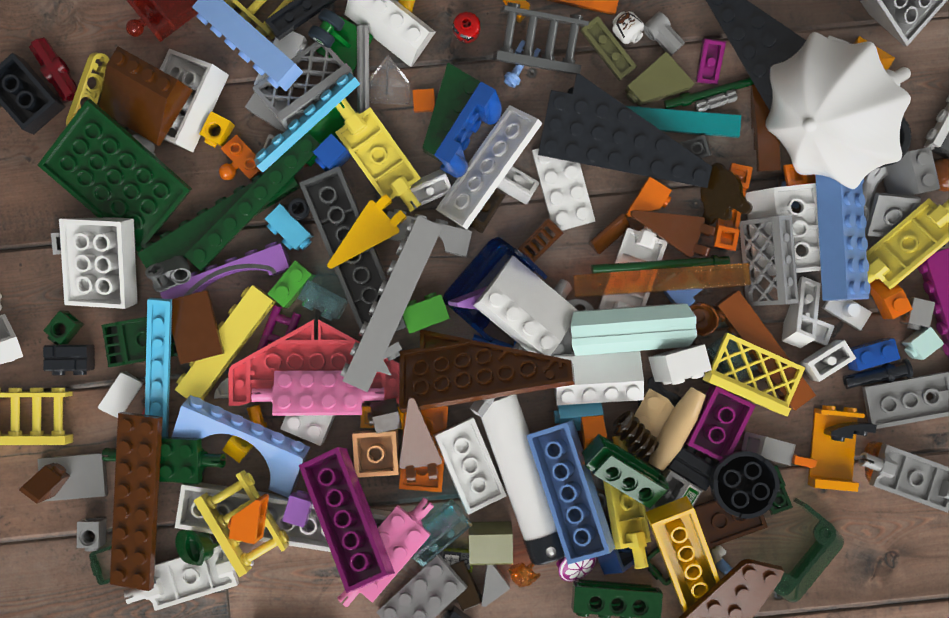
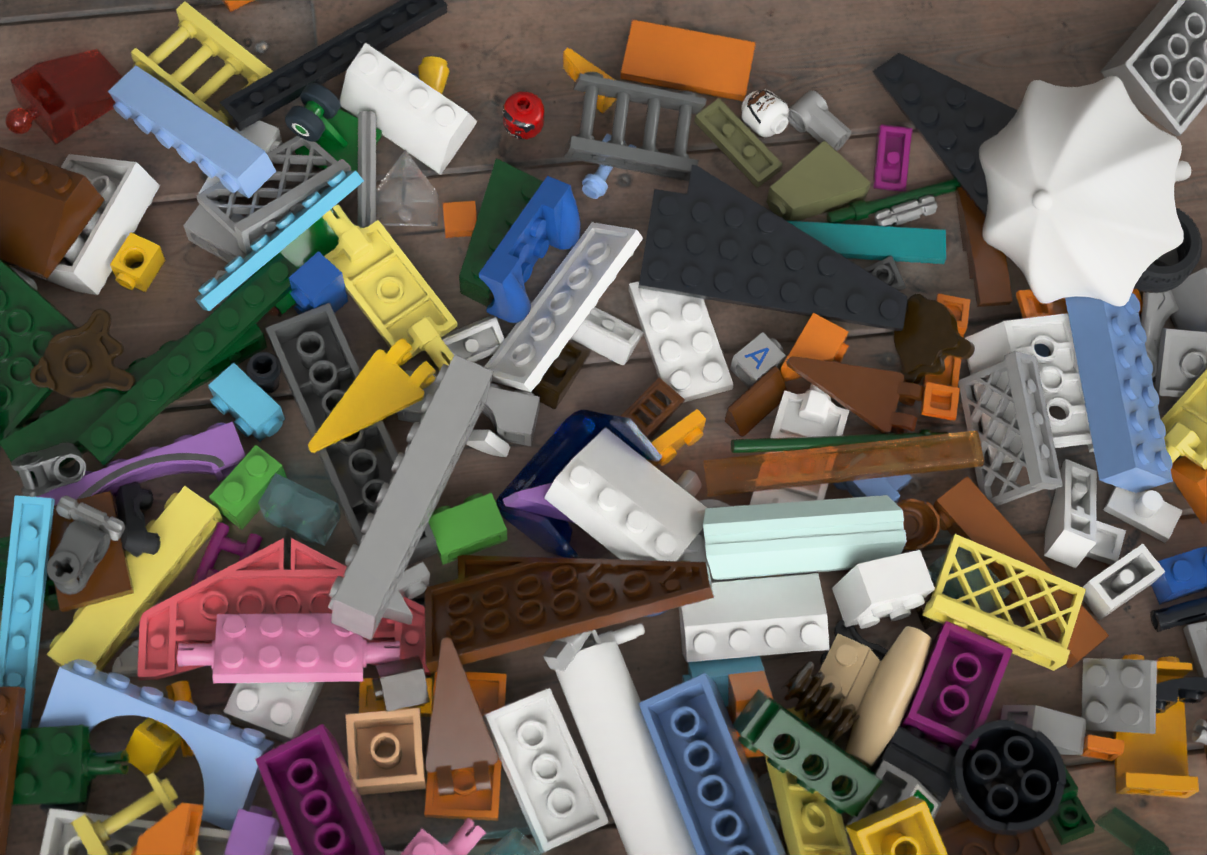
camera: 10 degrees left, 20 degrees down
(184, 204) = (82, 360): none -> dark brown tile
(189, 332) = (77, 552): none -> dark grey piece
(195, 309) = (88, 515): none -> light grey axle
(222, 320) = (135, 538): none -> black piece
(241, 157) = (173, 304): orange plate -> none
(441, 257) = (488, 442): none -> white tile
(564, 254) = (684, 432): none -> light orange plate
(612, 206) = (757, 359): none -> light grey brick
(817, 432) = (1119, 695): none -> light grey plate

